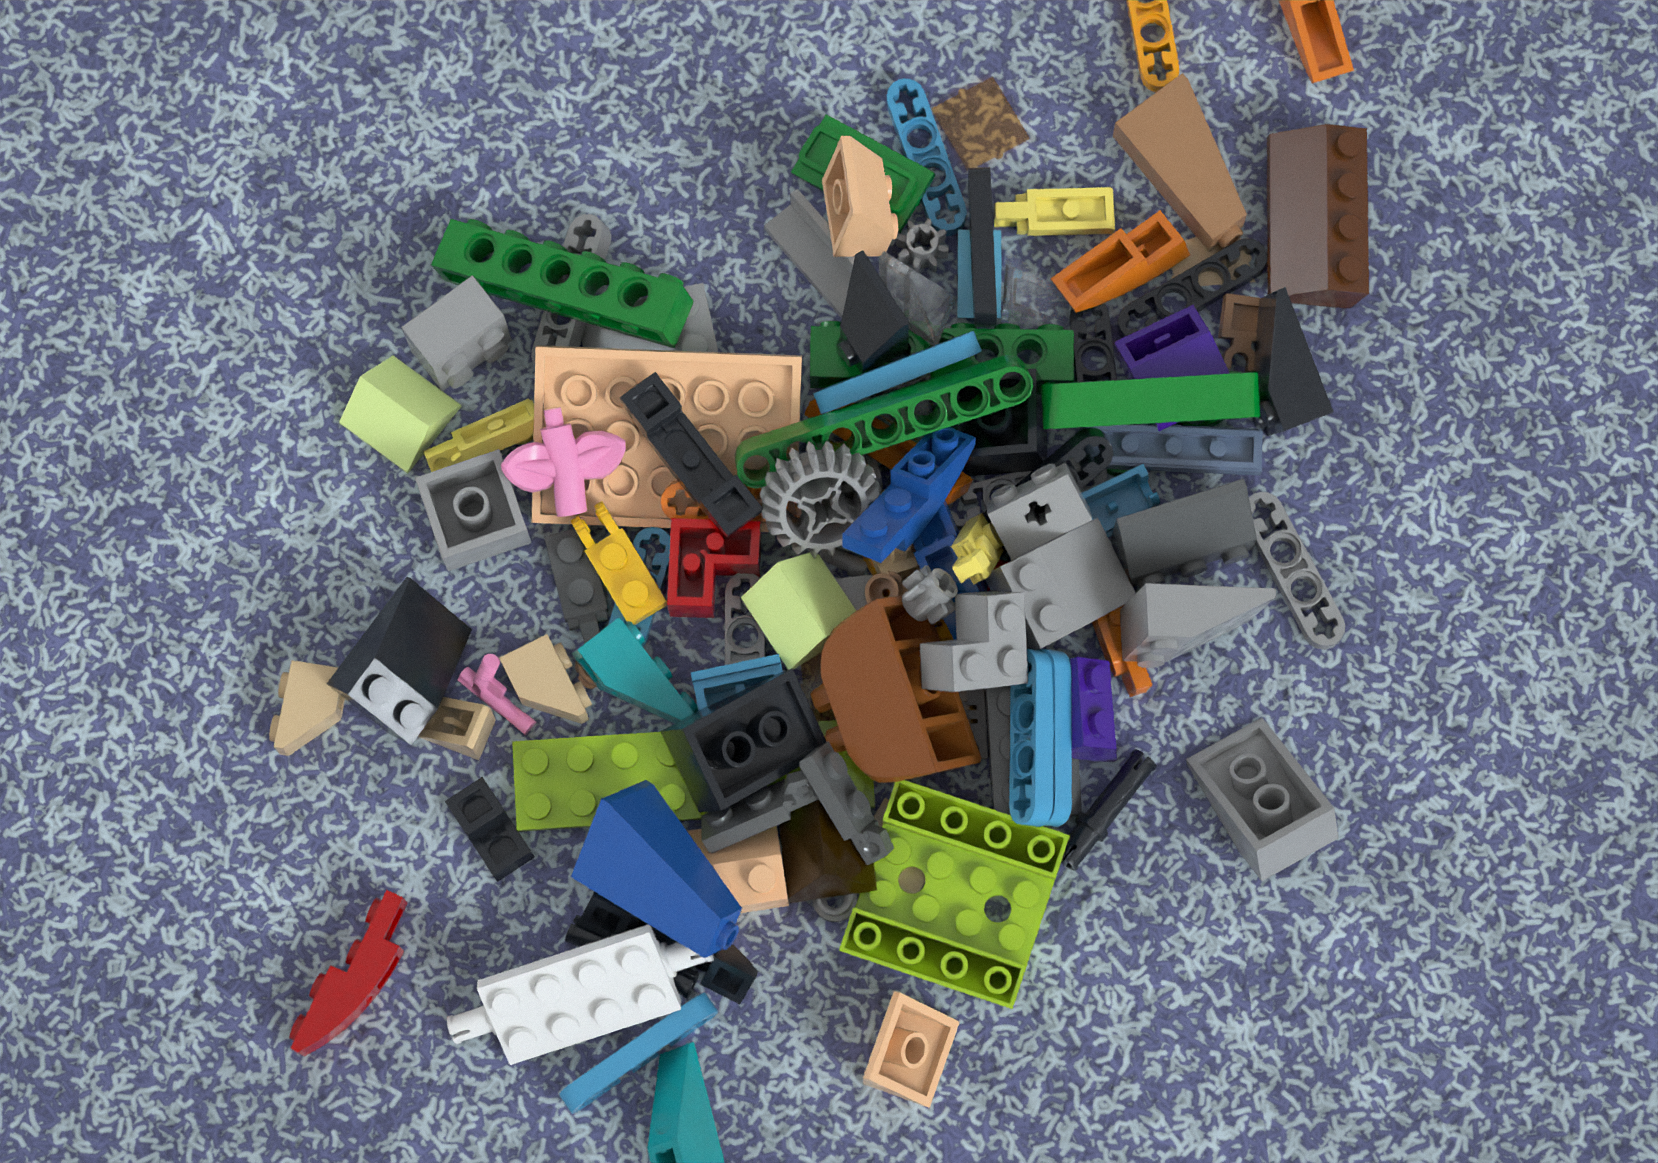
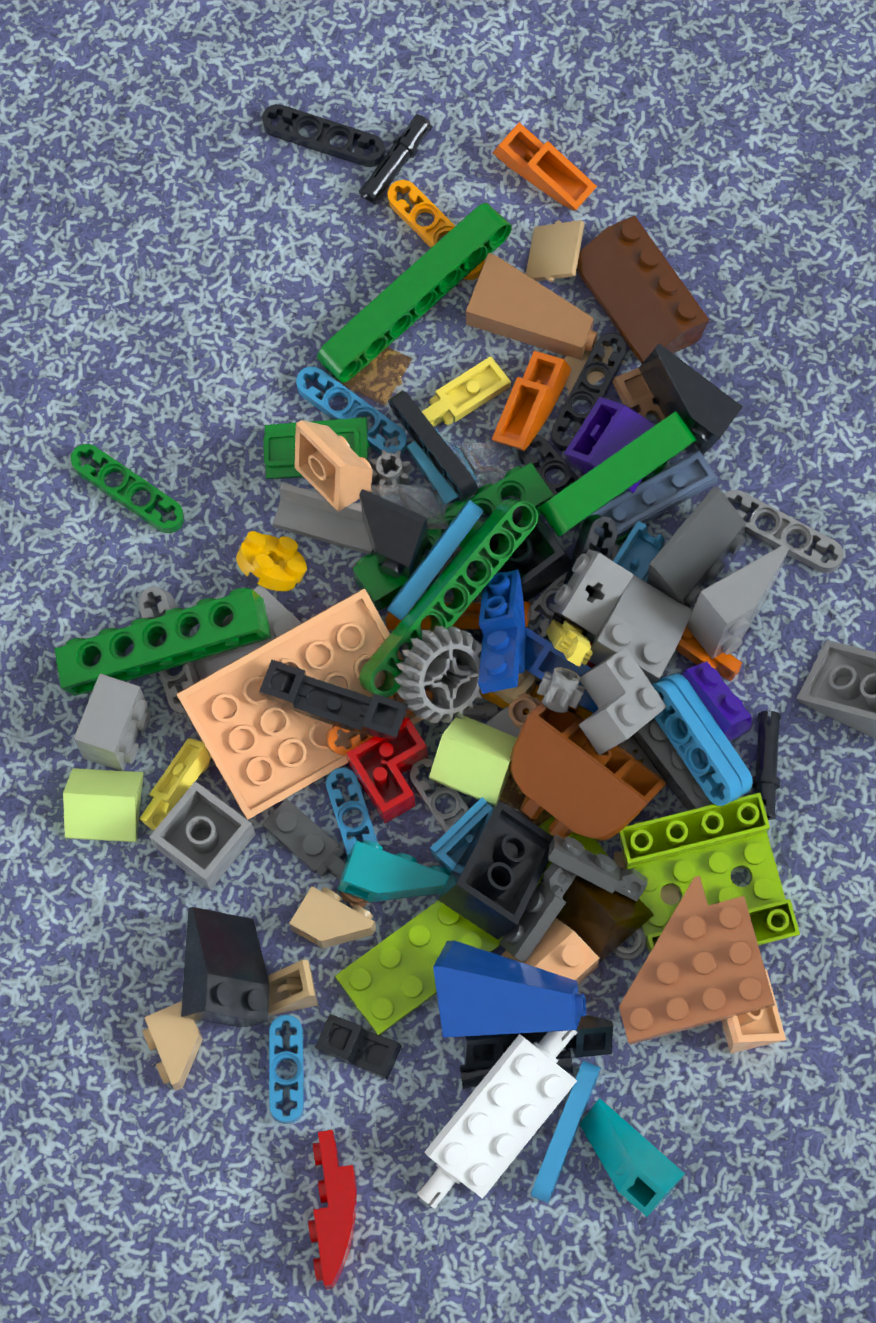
camera: 30 degrees left, 5 degrees down
(375, 827) = (277, 1097): none -> dark azure beam
(492, 692) = (298, 950): bright pink hose -> none
(563, 462) = (246, 761): bright pink plant -> none
(621, 568) = (331, 810): yellow hinge -> none
(643, 93) = (130, 485): none -> green beam
(753, 263) = (272, 561): none -> yellow plate
(877, 978) = (698, 970): none -> nougat wing
(1077, 67) = (414, 292): none -> green beam
(1258, 114) = (555, 250): none -> tan piece

